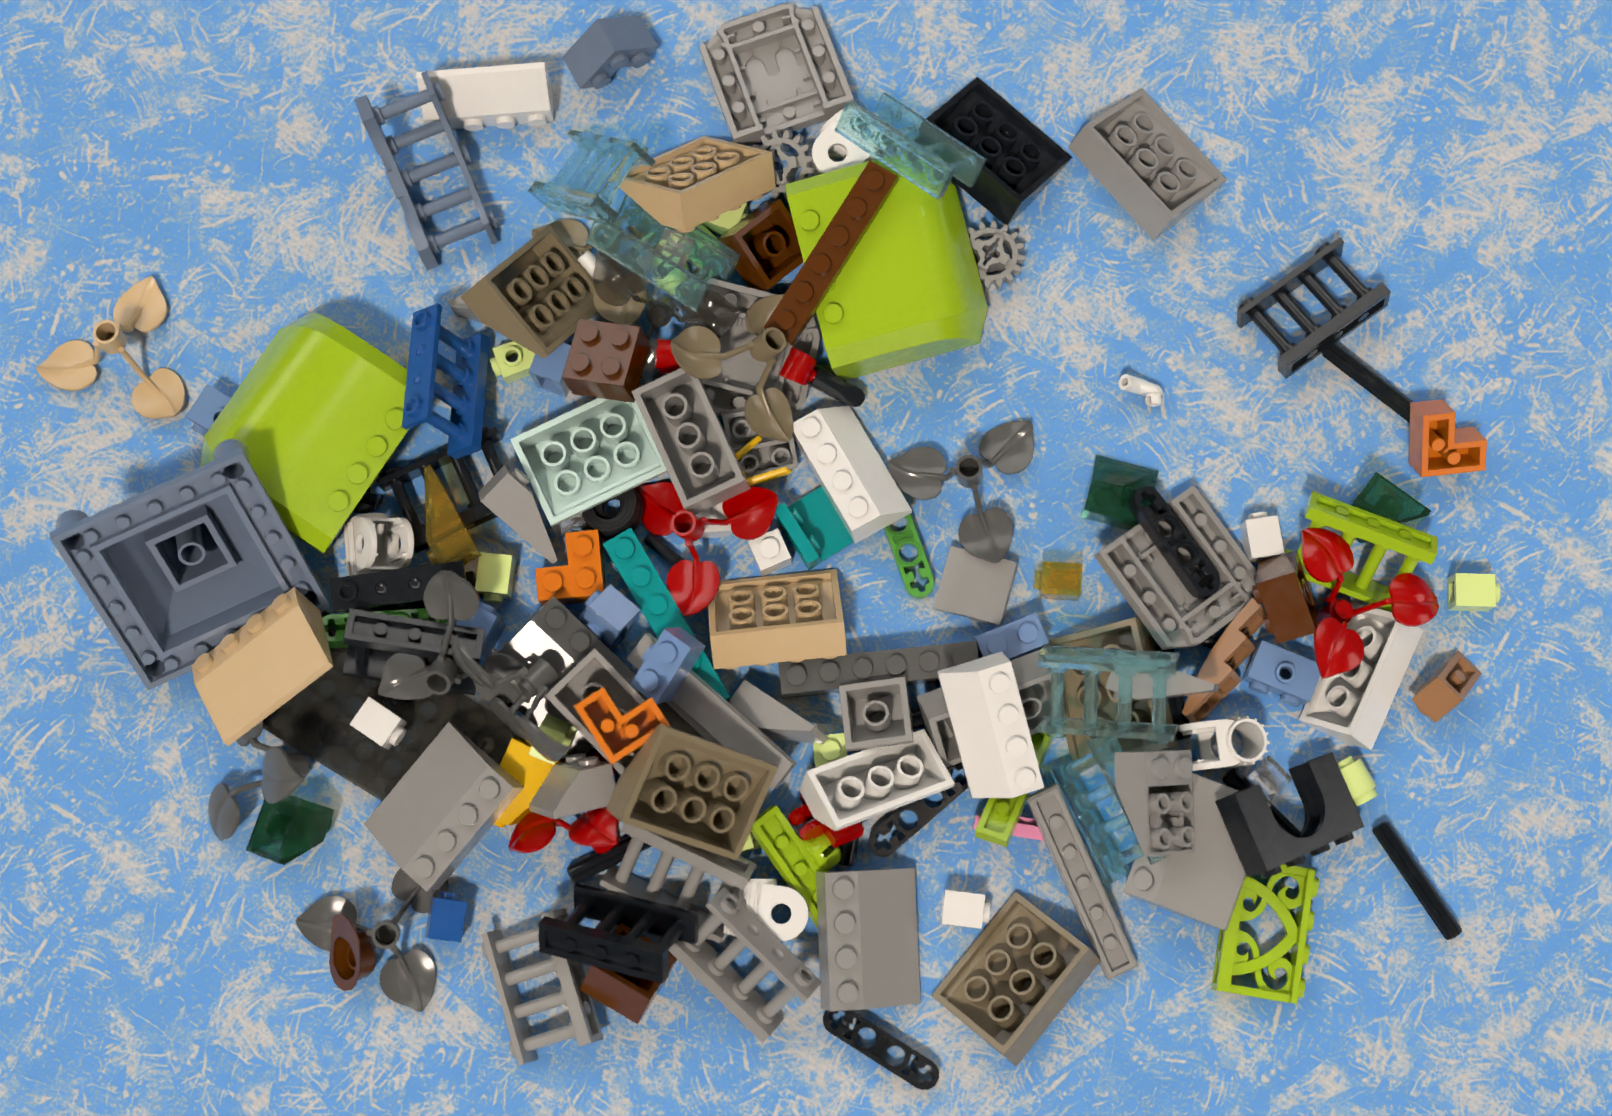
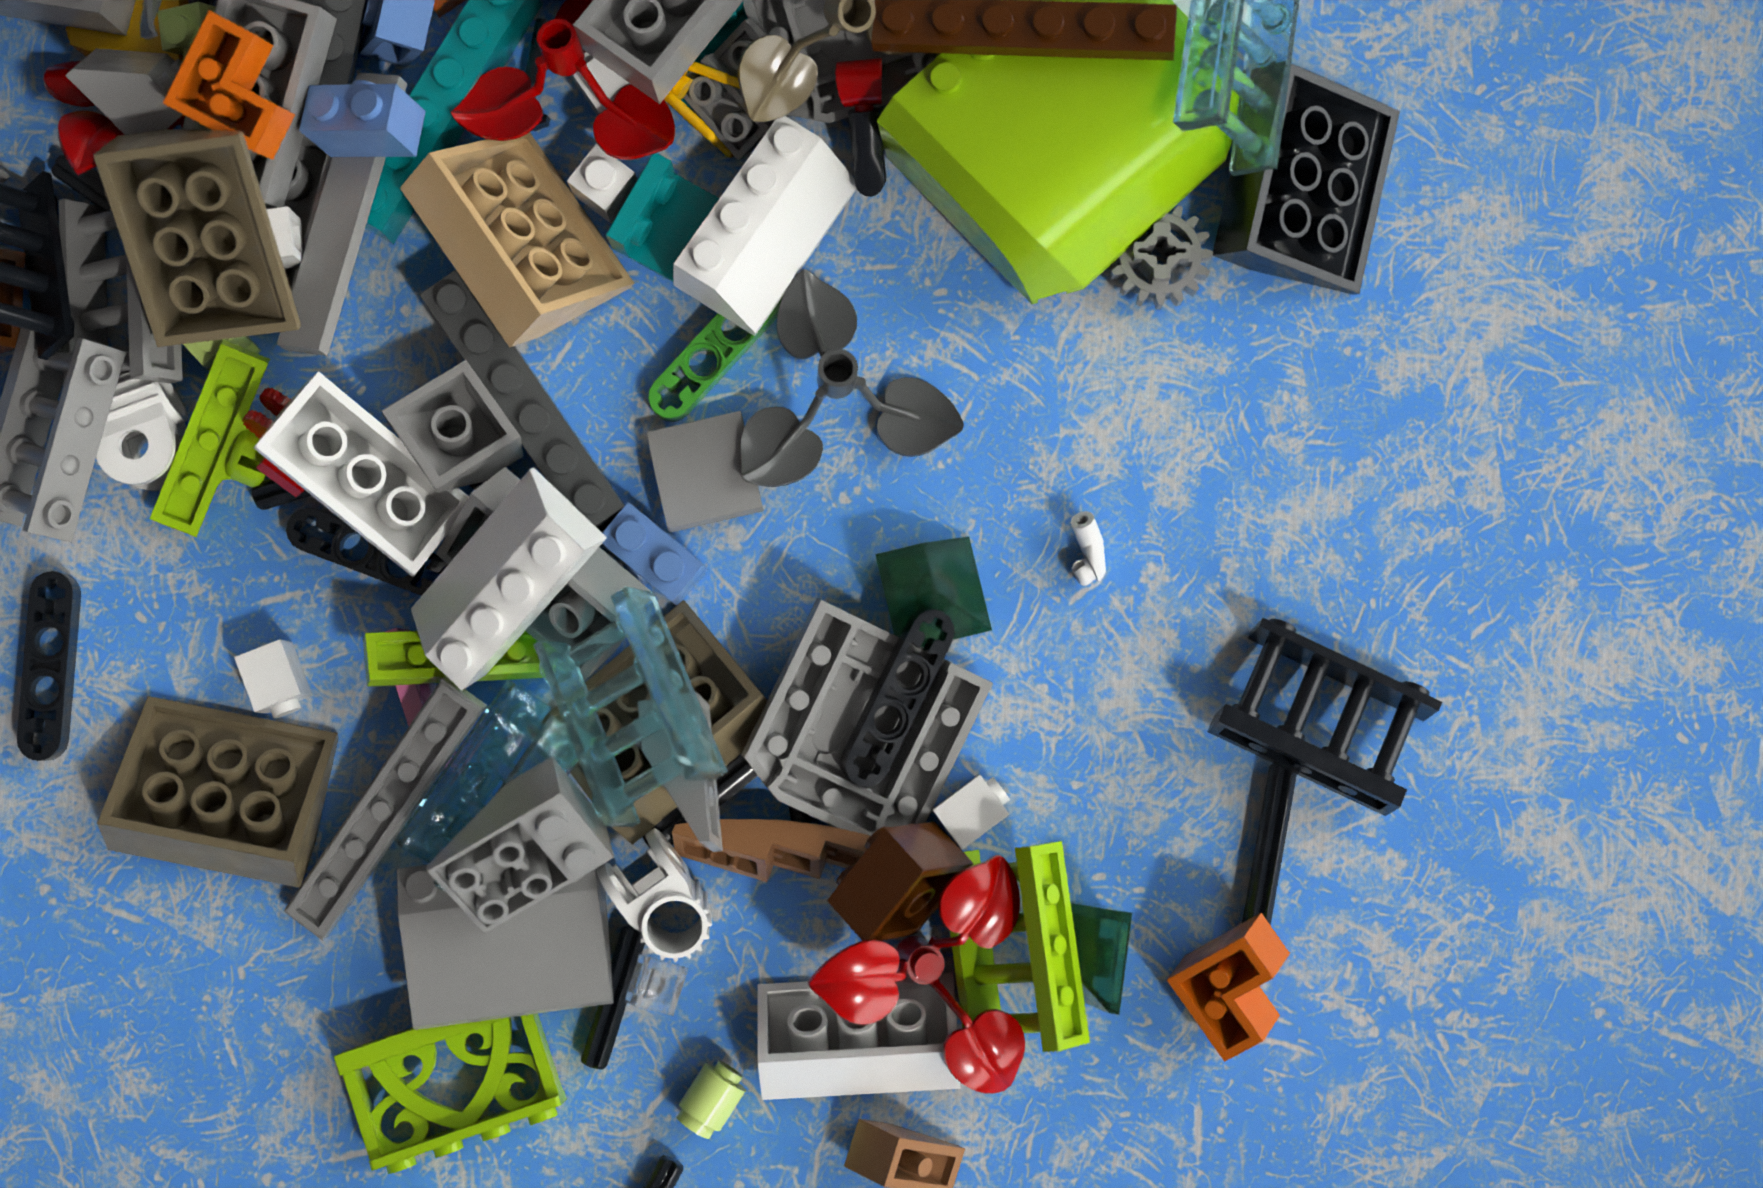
camera: 60 degrees right, 5 degrees up
(773, 717) = (384, 292): light grey slope -> none
(831, 750) = (378, 391): yellowish green brick -> none
(867, 939) = (168, 576): light grey slope -> none
(1058, 580) = (768, 574): clear yellow brick -> none
(1146, 163) = (1404, 393): light grey slope -> none
(1265, 845) = (638, 1090): black arch -> none
(1282, 673) = (802, 928): medium blue brick -> none
(1472, 592) = (1051, 1129): yellowish green brick -> none

